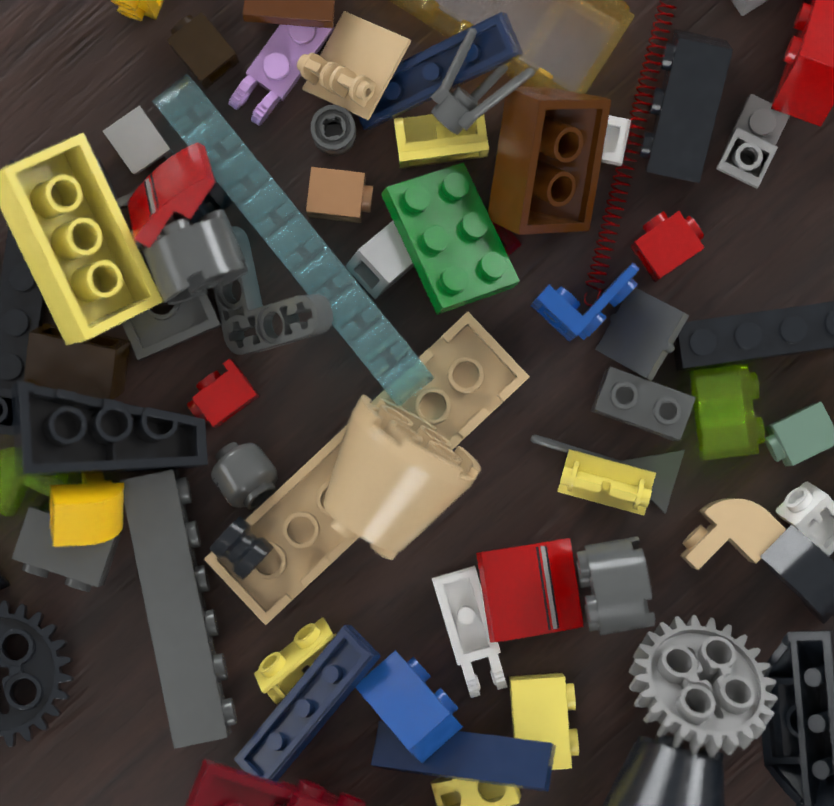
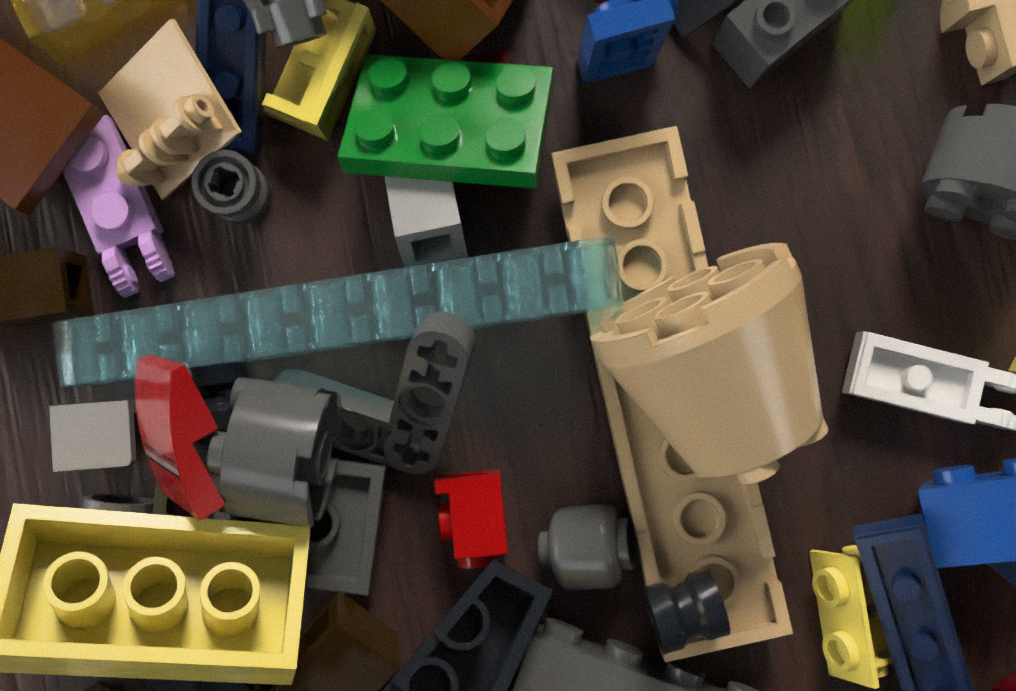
camera: 65 degrees left, 0 degrees up
(338, 195) = (313, 228): medium nougat brick -> none
(530, 590) = (931, 283): red slope -> none
(606, 482) = (854, 112): light yellow hinge -> none
(665, 465) = (866, 62): dark grey piece -> none

